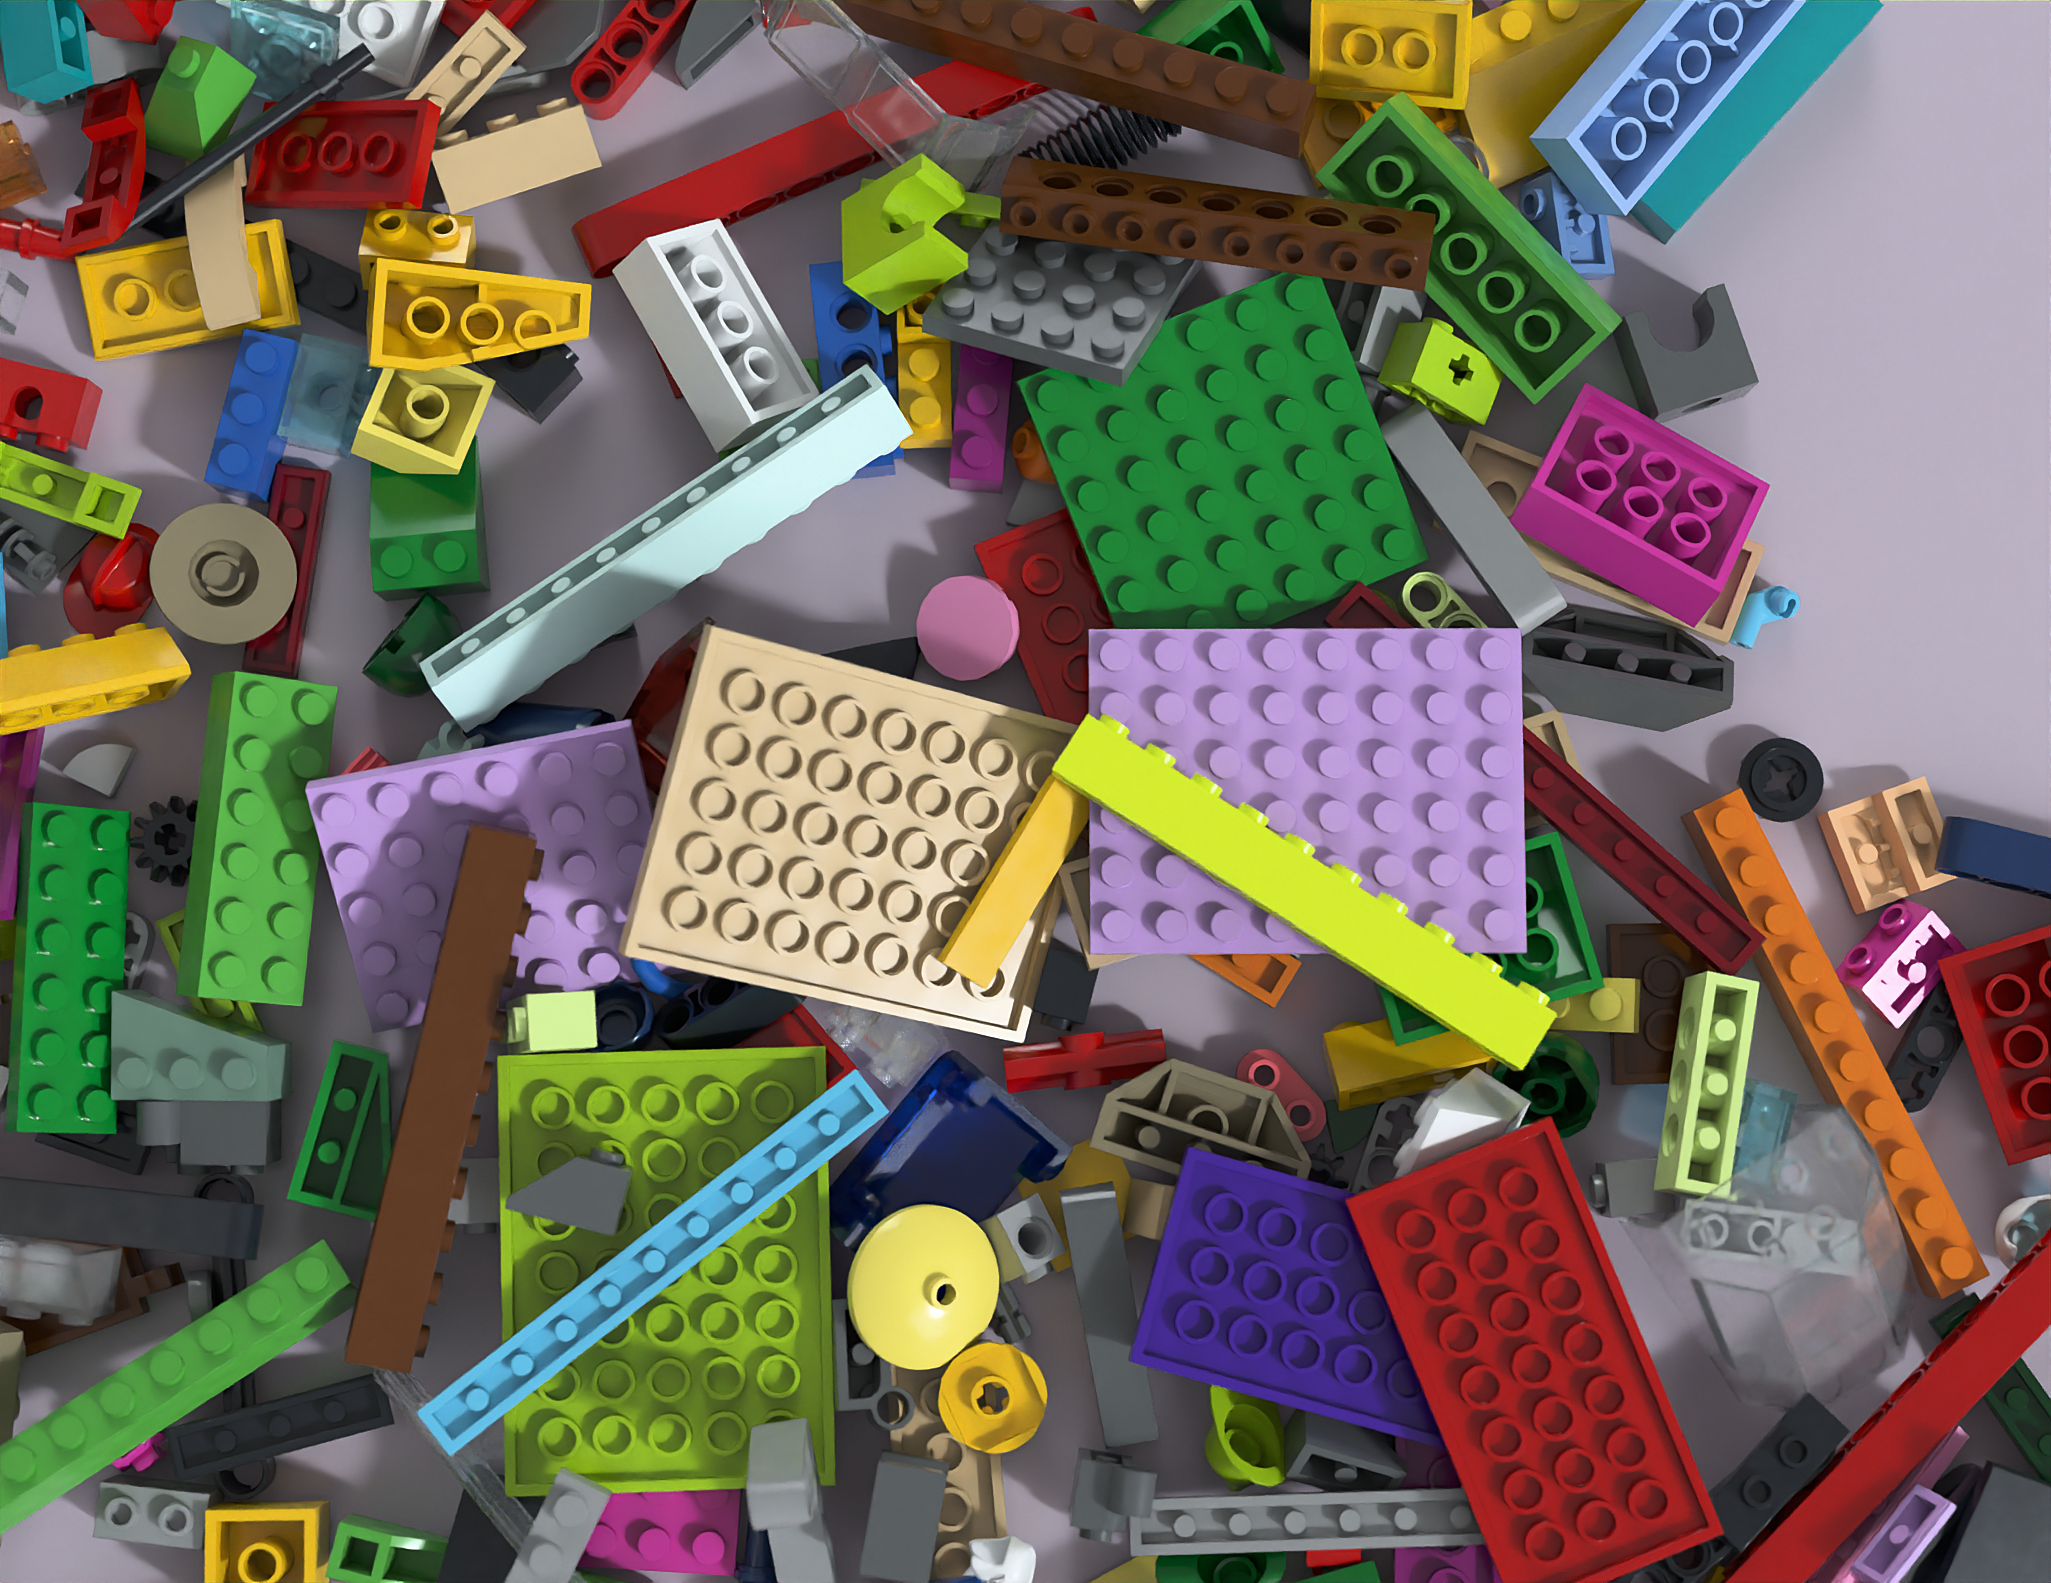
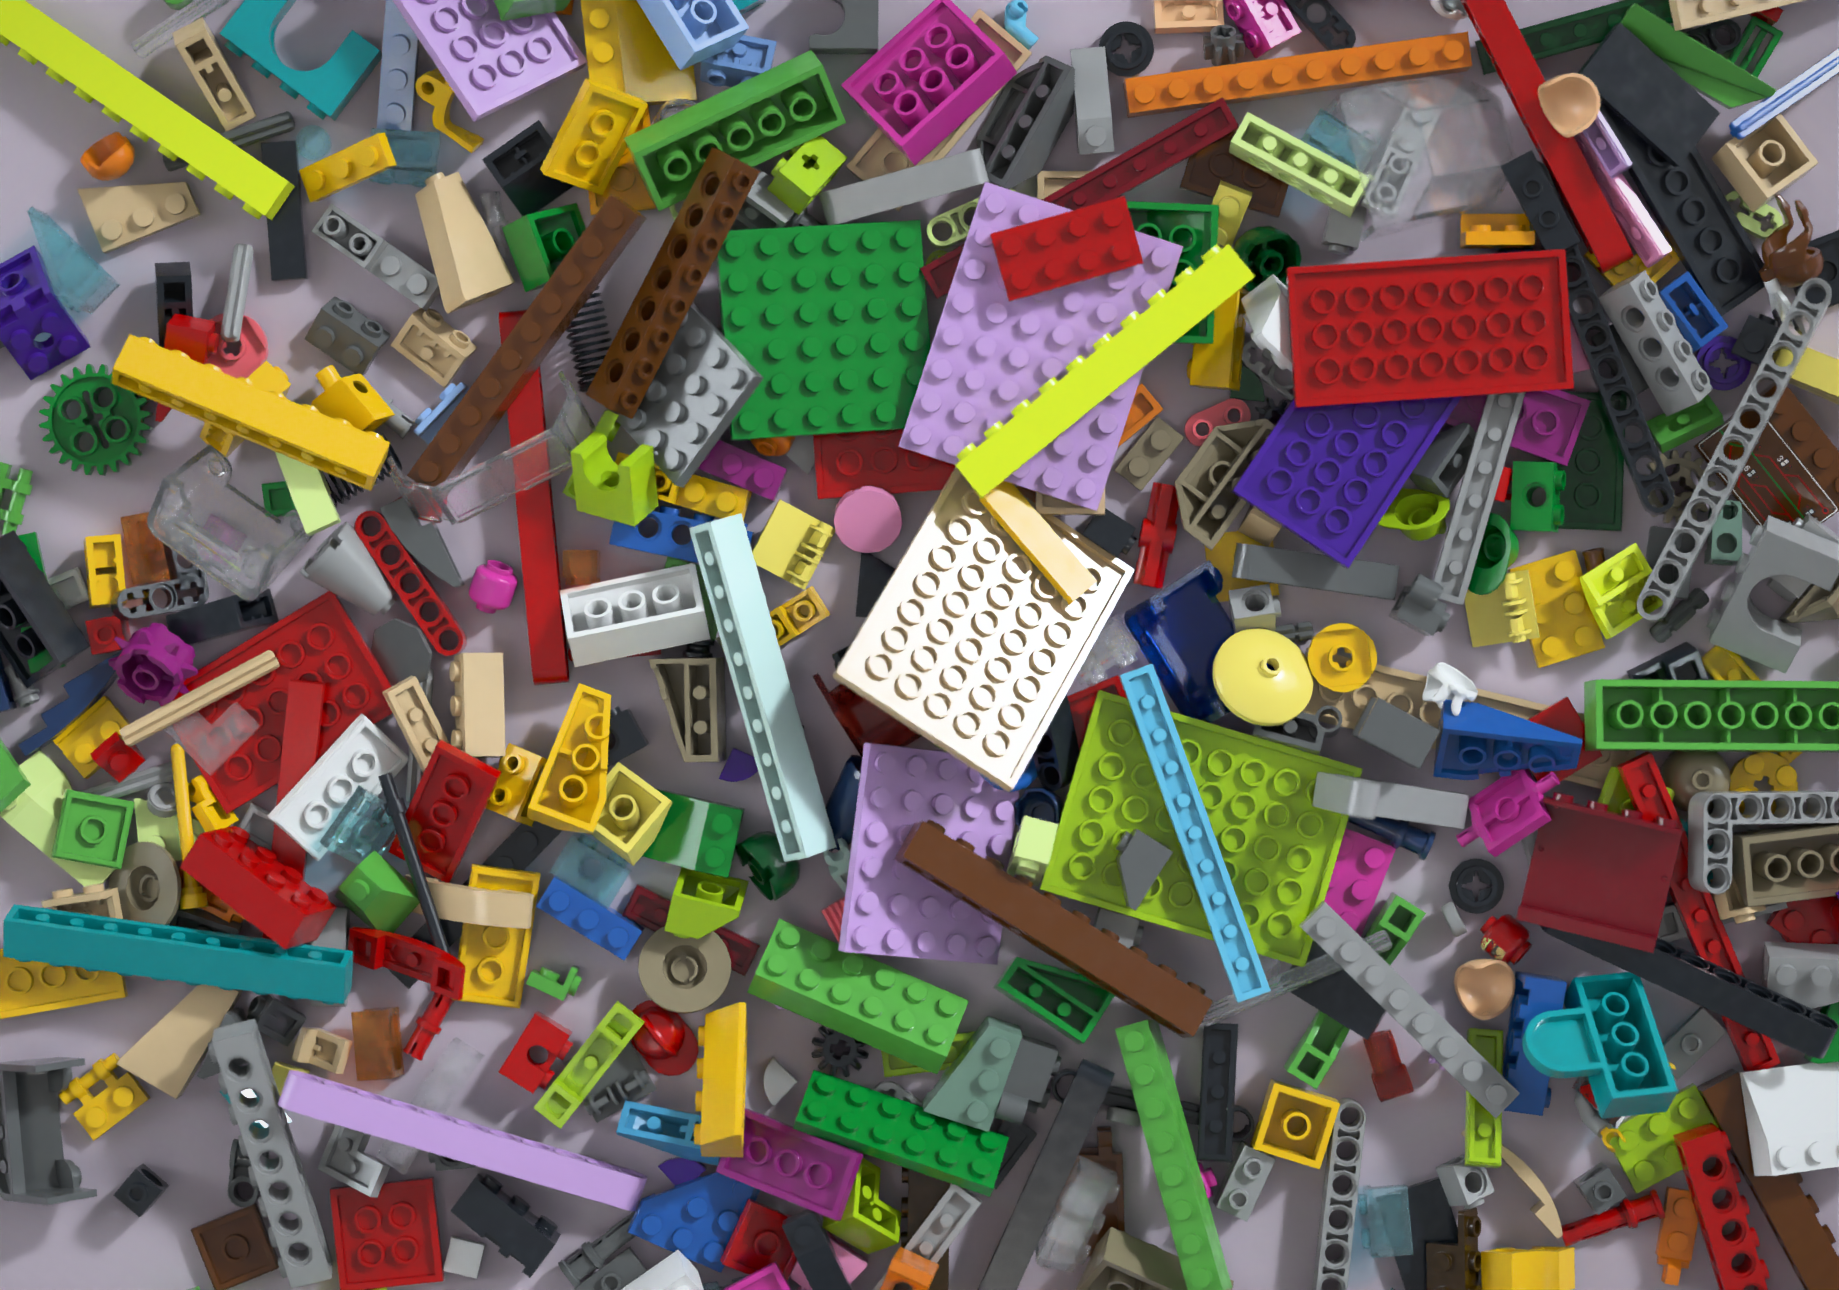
camera: 75 degrees left, 5 degrees up
(141, 389) = (549, 983): none -> bright green bracket
(325, 569) = (704, 903): none -> lime slope
(544, 556) = (738, 766): none -> dark purple tile
(613, 467) = (696, 705): none -> dark tan wedge
(694, 125) = (493, 586): none -> dark pink head
(698, 447) = (699, 649): none -> black bush
(764, 240) = (581, 567): none -> clear orange brick
(792, 571) = (798, 615): none -> yellow slope
(894, 530) = (792, 544): none -> light yellow hinge
(1201, 1009) = (1149, 453): none -> dark tan plate
(1464, 778) = (1066, 248): none -> red plate
(1689, 752) = (1092, 101): none -> light grey slope
(1705, 1417) = (1495, 231): none -> light orange bracket
(1838, 919) = (1223, 45): none -> dark grey gear
(1947, 1465) = (1569, 103): none -> light nougat helmet

